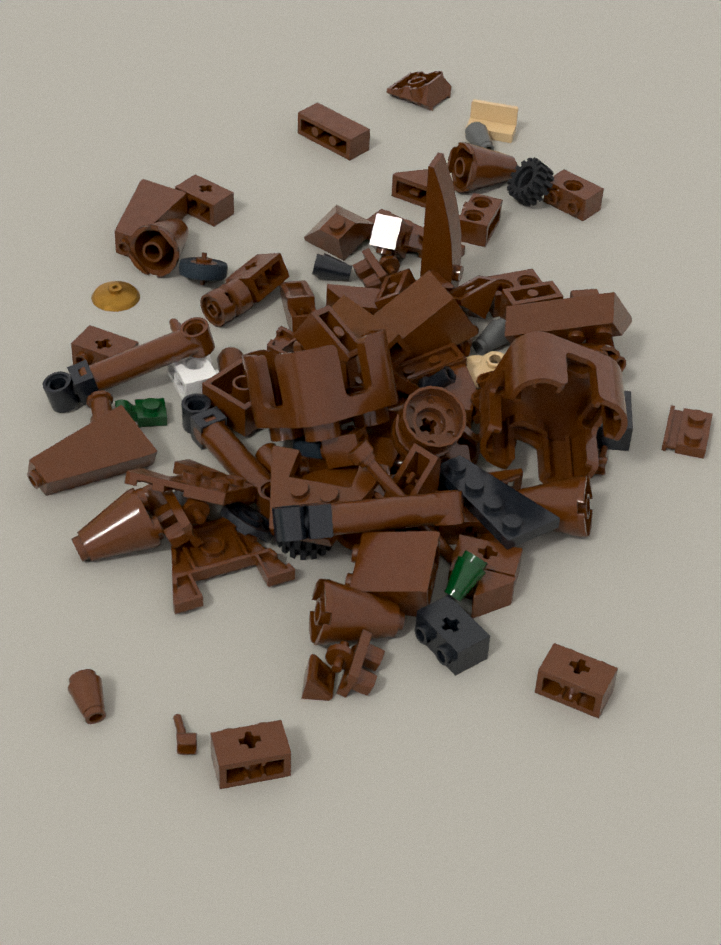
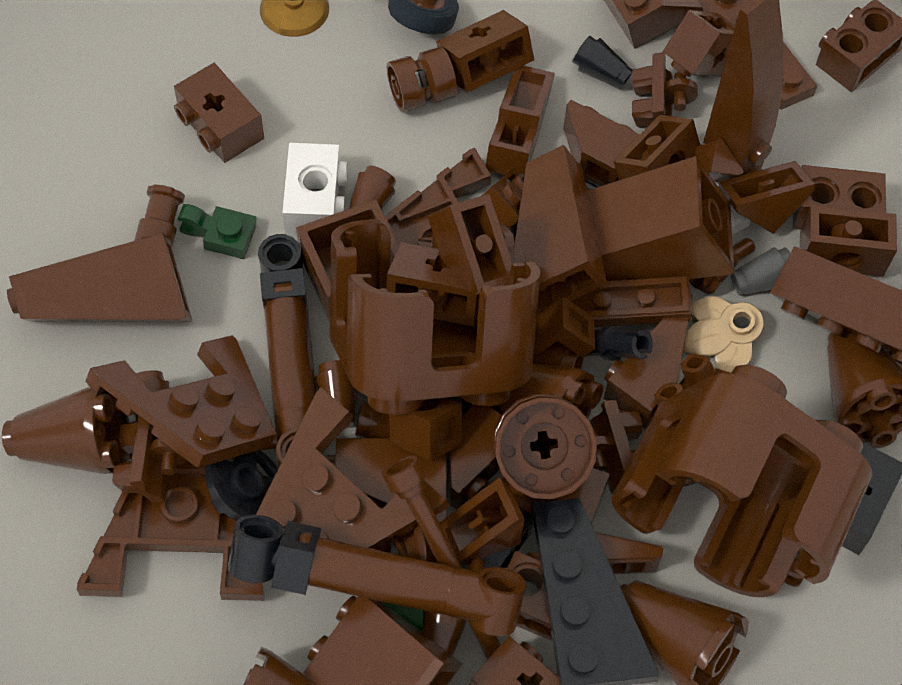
camera: 25 degrees right, 20 degrees up
(185, 340) = (164, 158): reddish brown piece -> none

